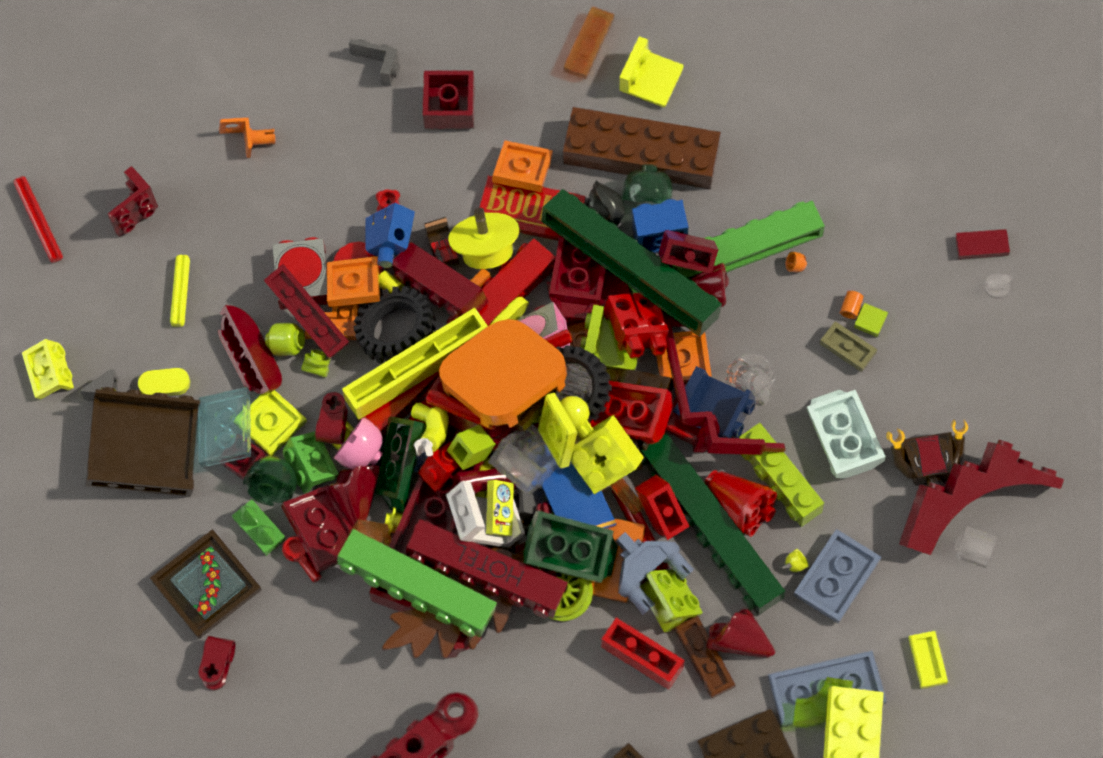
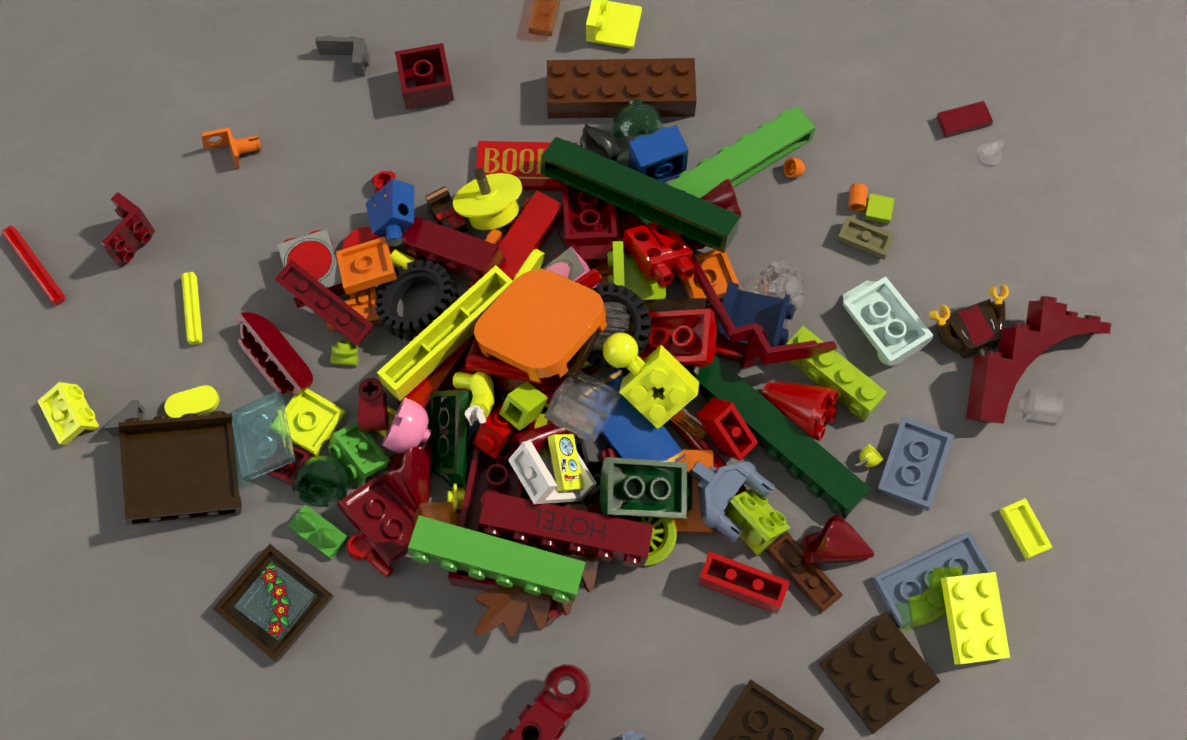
camera: 15 degrees left, 0 degrees up
(217, 657) = (300, 678): dark red piece -> none
(285, 339) = (308, 335): lime head -> none
(522, 166) = (509, 125): orange plate -> none
(557, 430) = (610, 371): neon yellow tile -> none
(688, 251) = (694, 172): dark red brick -> none

